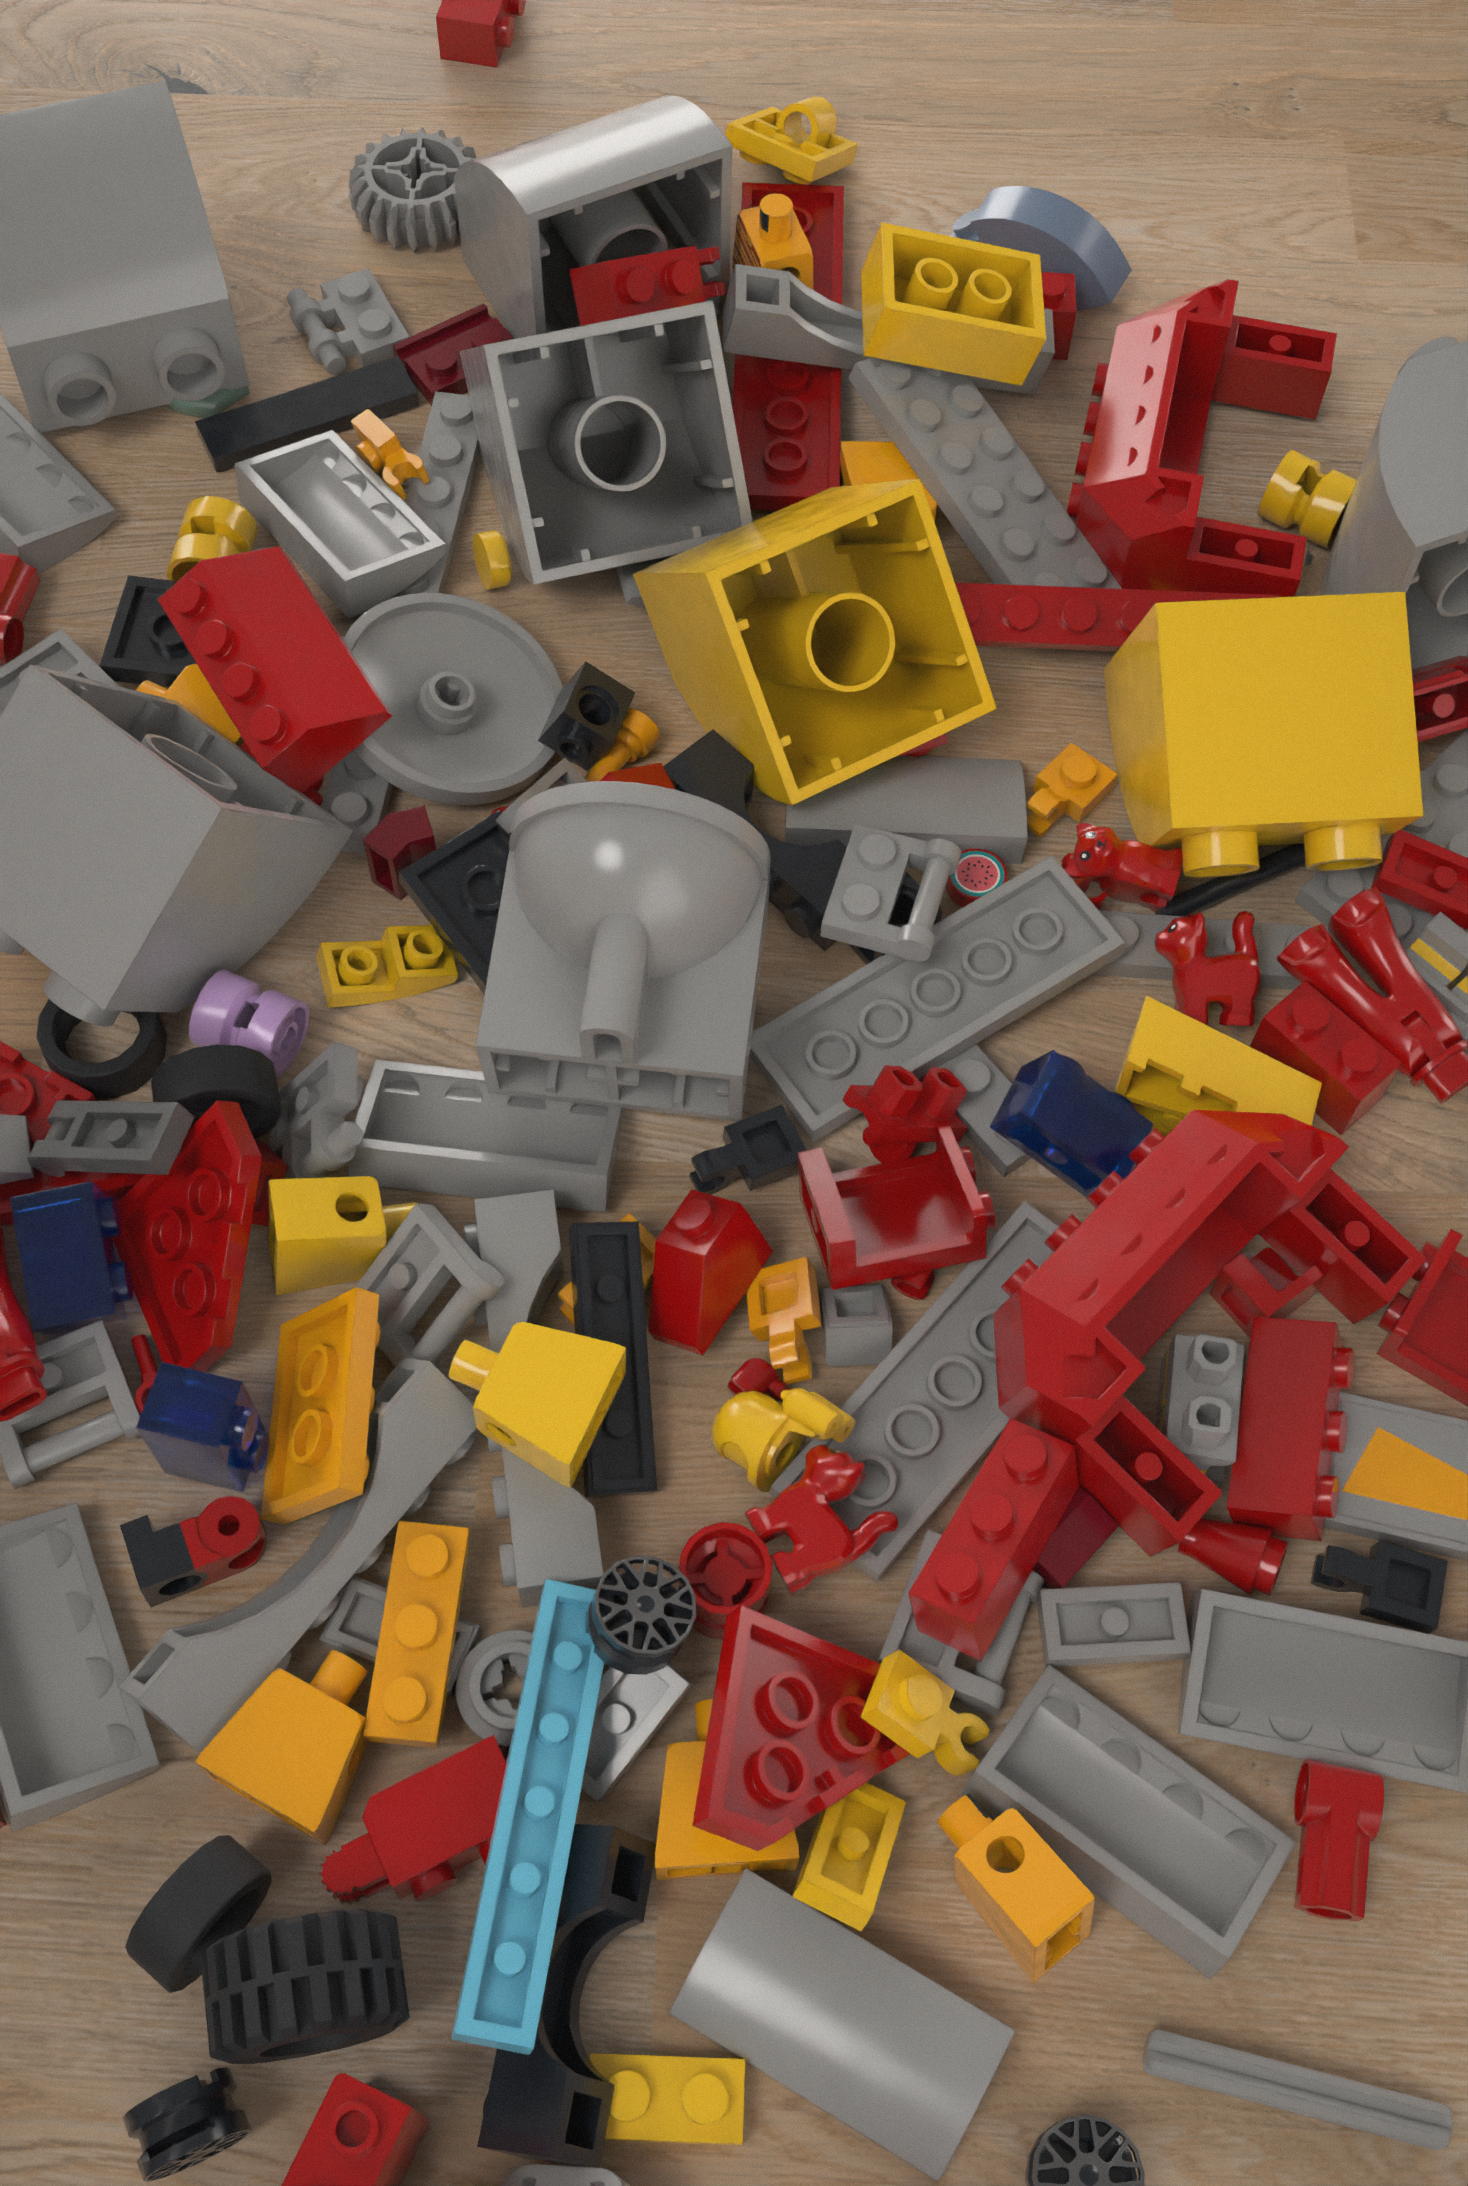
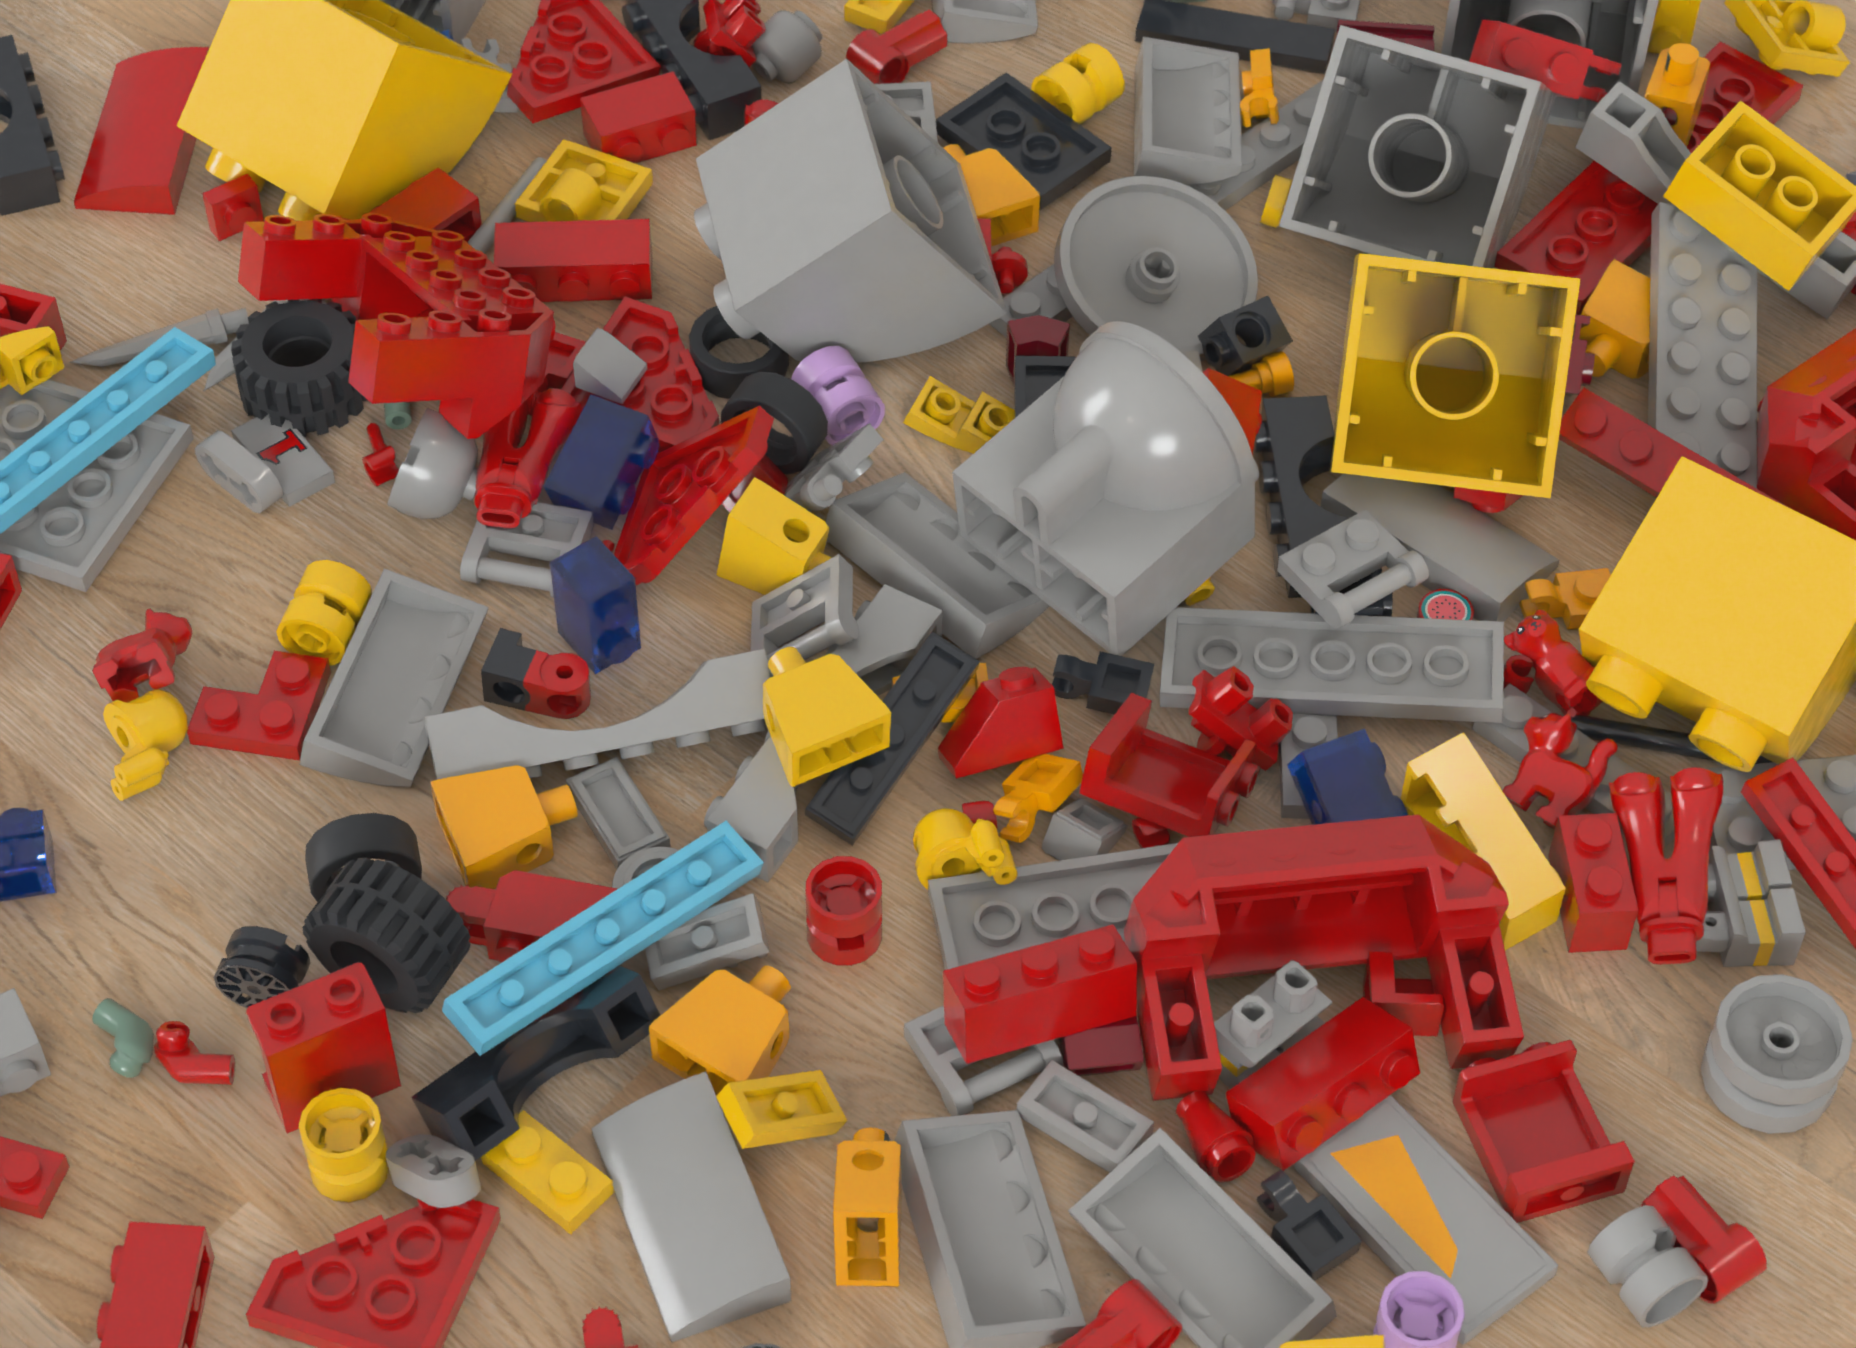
camera: 40 degrees right, 10 degrees down
(111, 1137) = (683, 399): dark grey plate -> none
(275, 663) = (1039, 171): red slope -> none
(321, 1407) = (681, 641): light orange plate -> none
(417, 1635) = (626, 811): light orange plate -> none
(640, 1616) = (756, 859): black wheel -> none
(784, 1731) = (807, 1011): red plate -> none
(805, 1515) = (927, 912): red animal -> none
(915, 1713) = (900, 1064): yellow plate -> none

